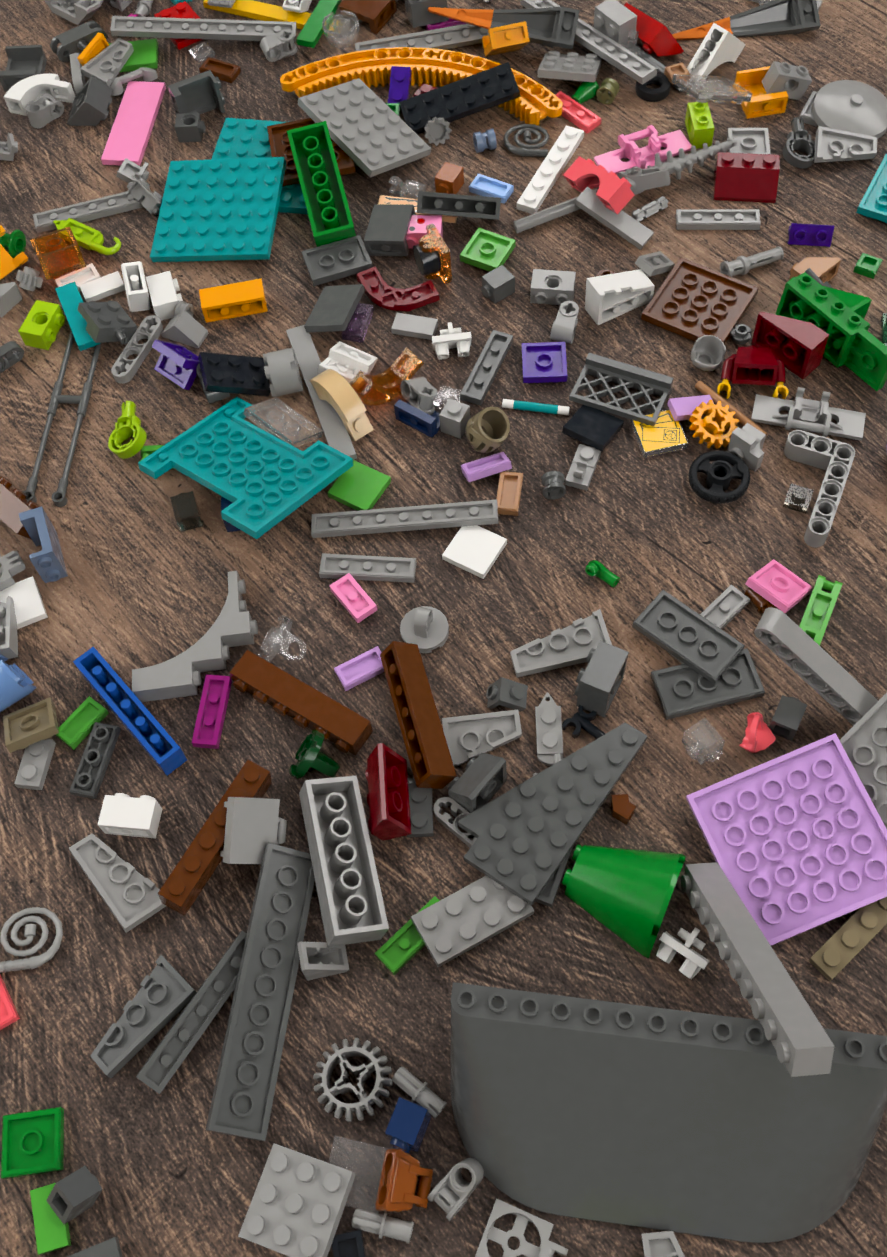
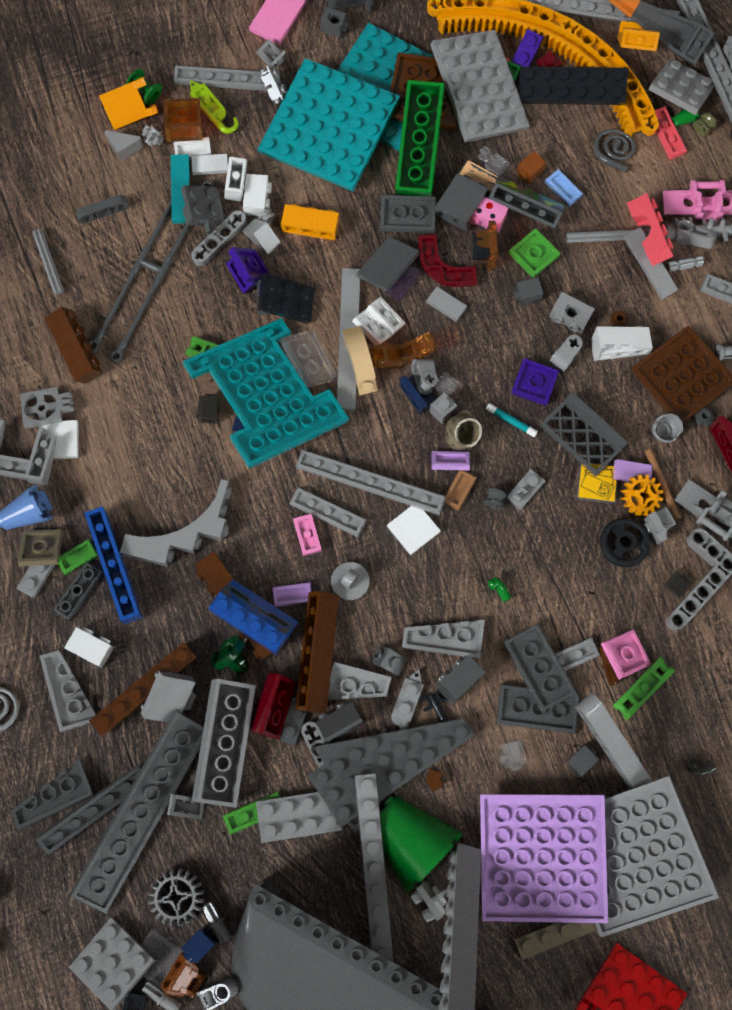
camera: 15 degrees right, 15 degrees up
(42, 325) = (151, 176): lime brick -> none
(49, 560) = (96, 386): sand blue panel -> none
(127, 426) = (186, 312): lime pin -> none
(212, 711) = (172, 587): magenta plate -> none
(278, 641) = (238, 550): clear tile -> none
(283, 372) = (324, 313): light grey brick -> none
(322, 701) = (253, 616): none -> blue slope
(359, 487) = (348, 439): bright green tile -> none
(437, 131) = (541, 110): light grey piece -> none
(449, 339) = (477, 337): white hips -> none
(484, 140) = (573, 137): sand blue wheel -> none
(486, 367) = (487, 368): plate -> none
(550, 170) = (621, 188): white plate -> none
(583, 914) = (373, 865): none -> light grey plate
(593, 427) = (547, 458): black tile -> none
(654, 263) = (663, 324): light grey plate -> none
(754, 367) = (696, 456): dark red torso -> none
(757, 733) = (554, 766): coral piece -> none

